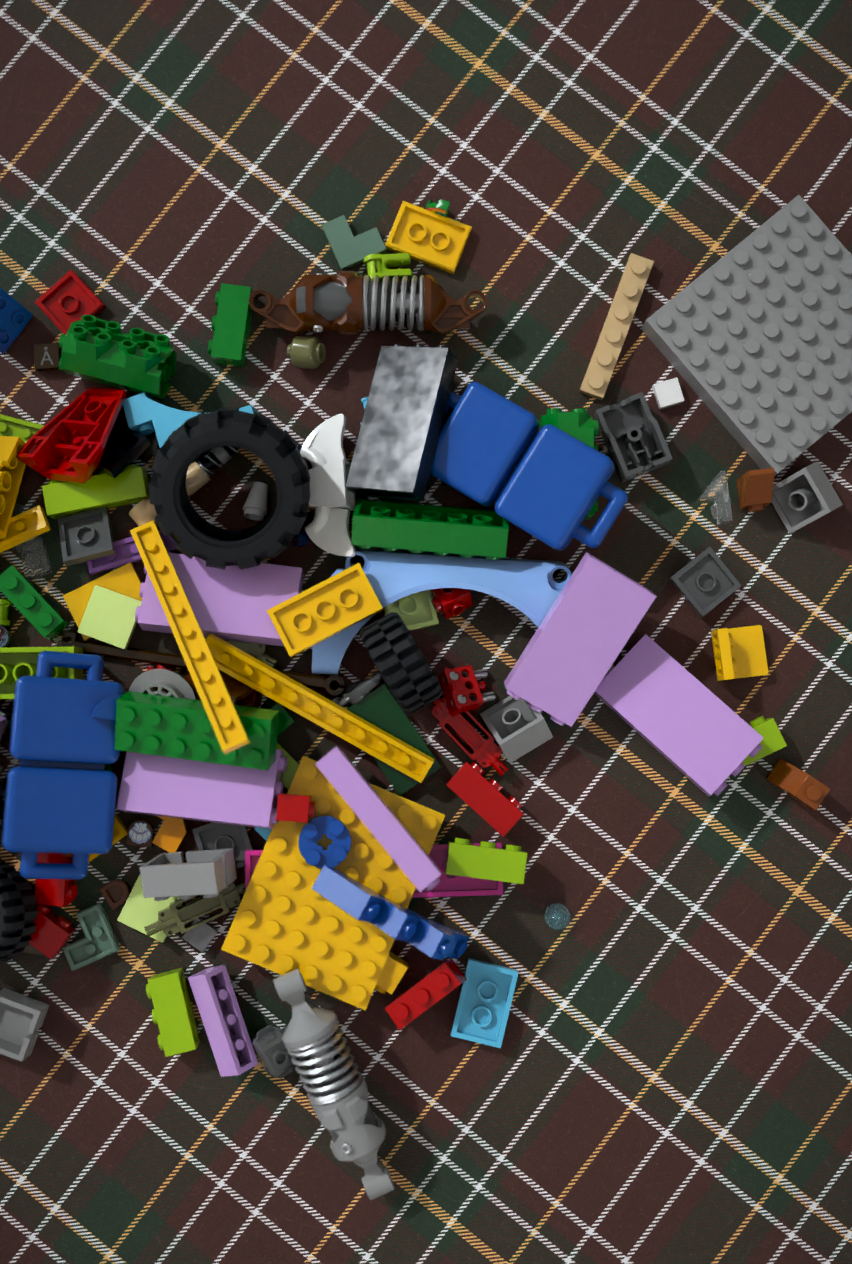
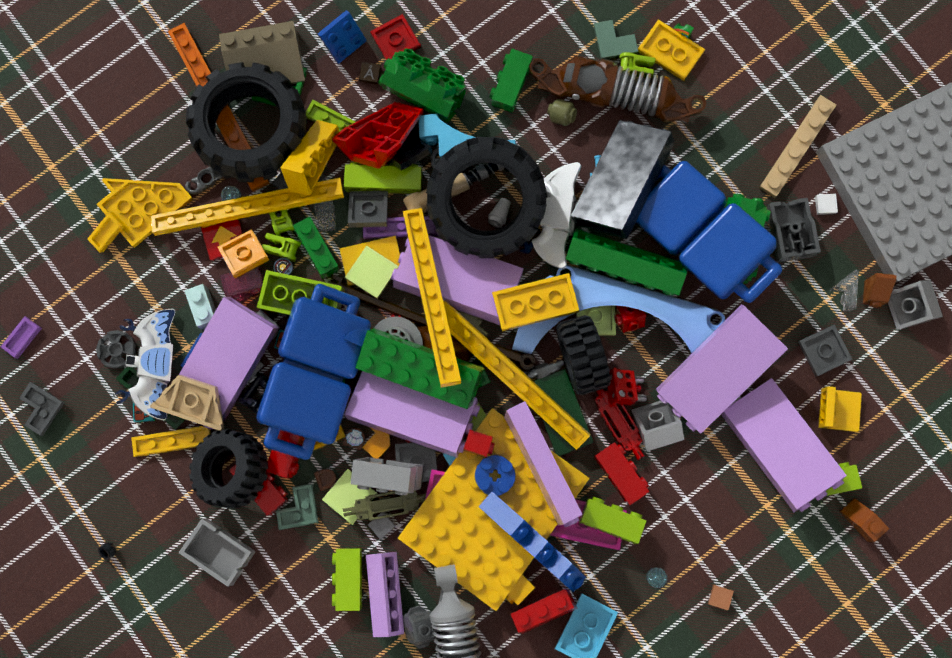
camera: 15 degrees right, 5 degrees down
(641, 921) = (720, 597): none -> nougat tile

